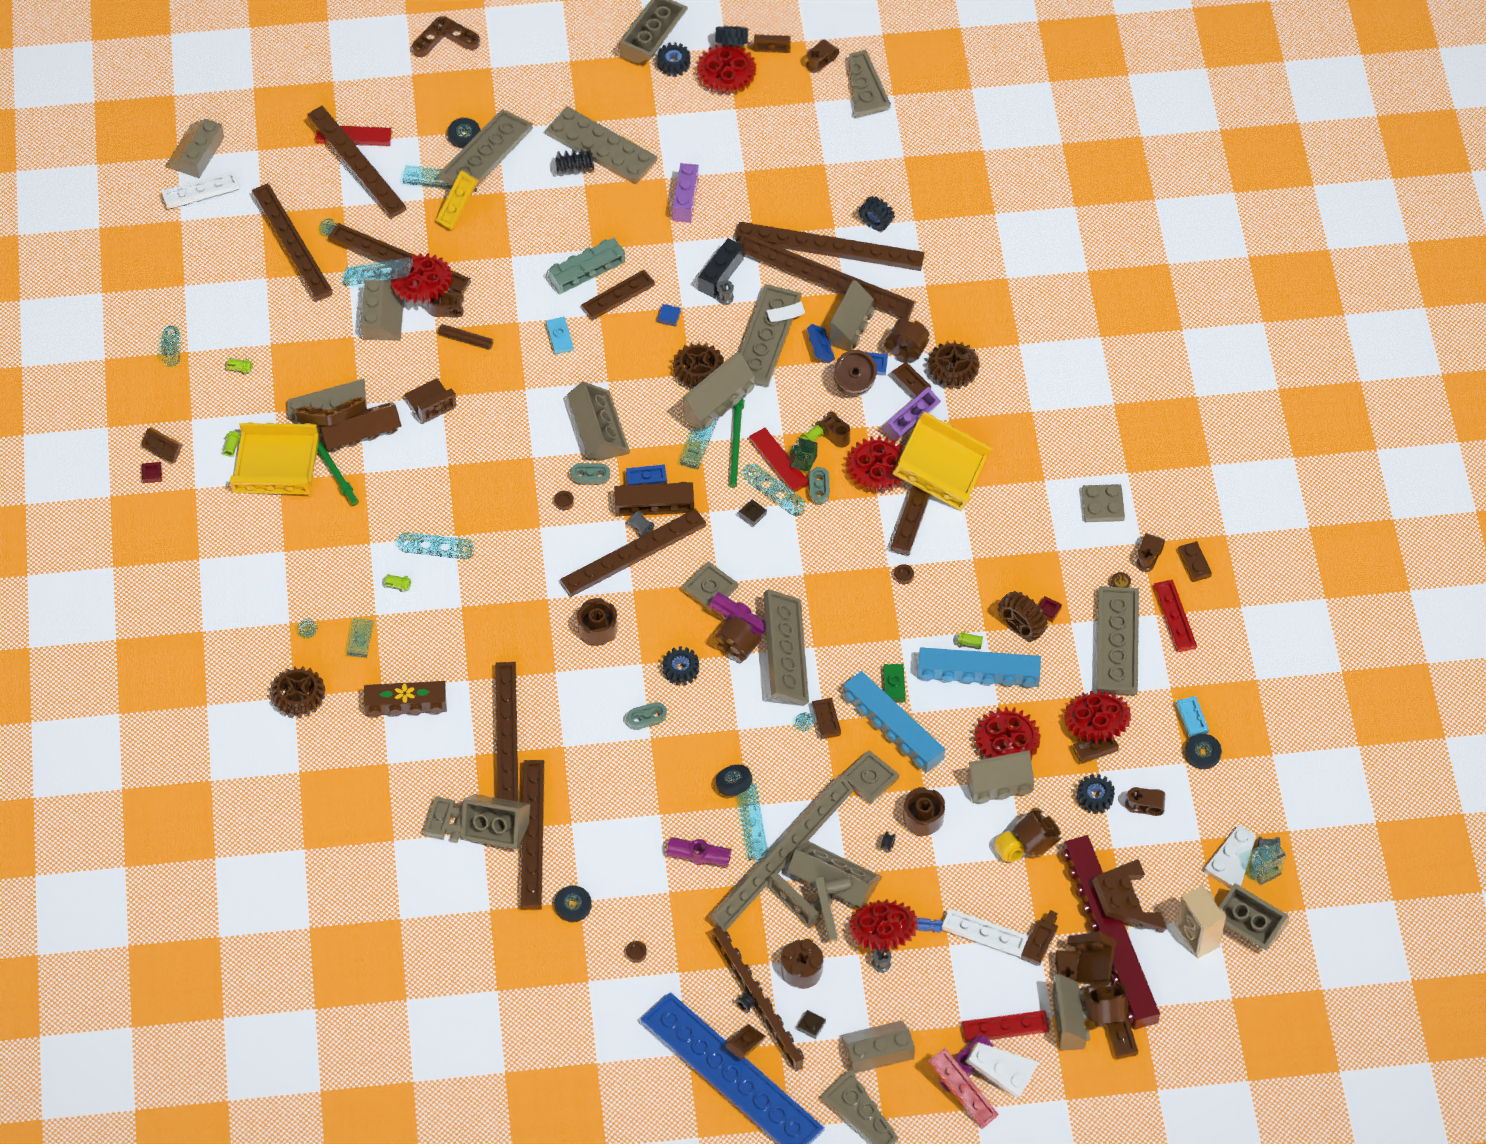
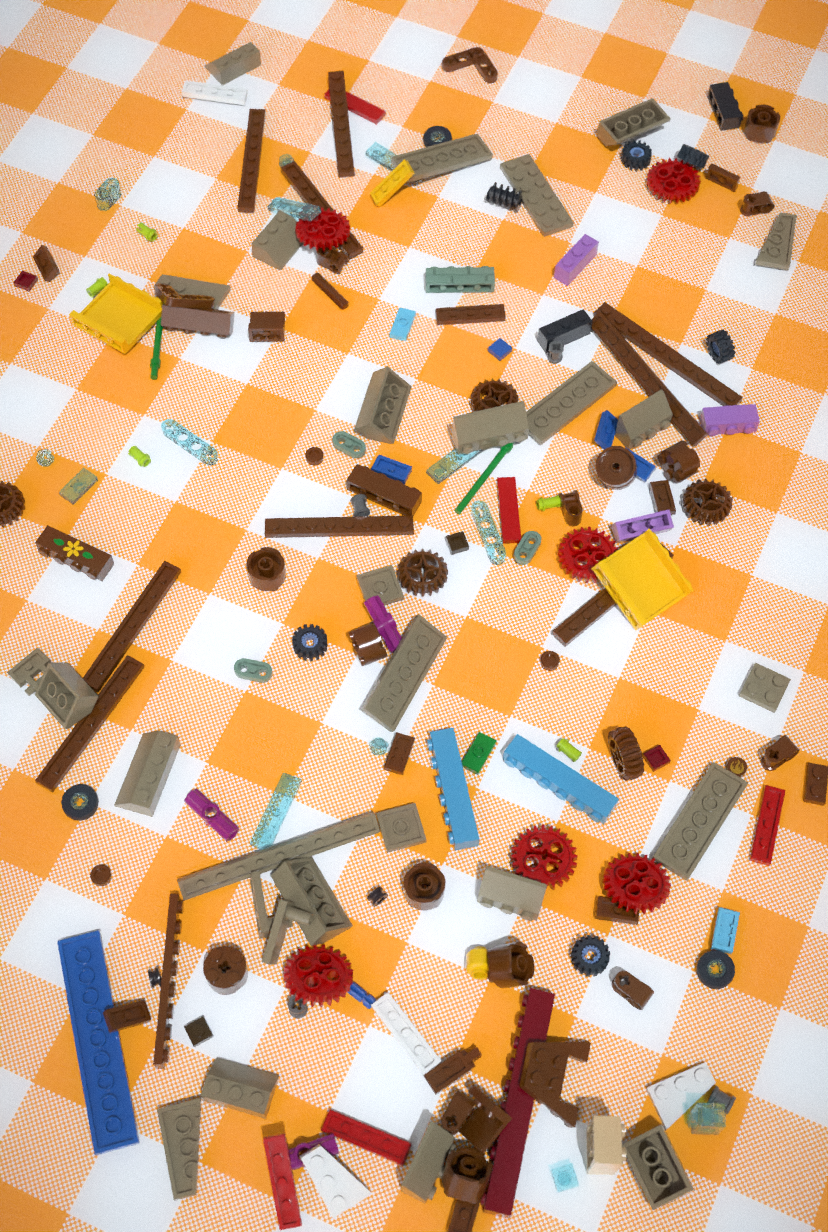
camera: 30 degrees right, 5 degrees up
(615, 847) = (148, 772): none -> dark tan slope
(734, 780) = (290, 769): black bush -> none
(743, 547) = (434, 570): none -> reddish brown gear
(786, 312) = (593, 391): white sticker -> none
(803, 454) = (529, 514): clear green brick -> none
(926, 278) = (730, 419): none -> medium lavender brick
(1182, 968) = (564, 1178): none -> clear light blue plate

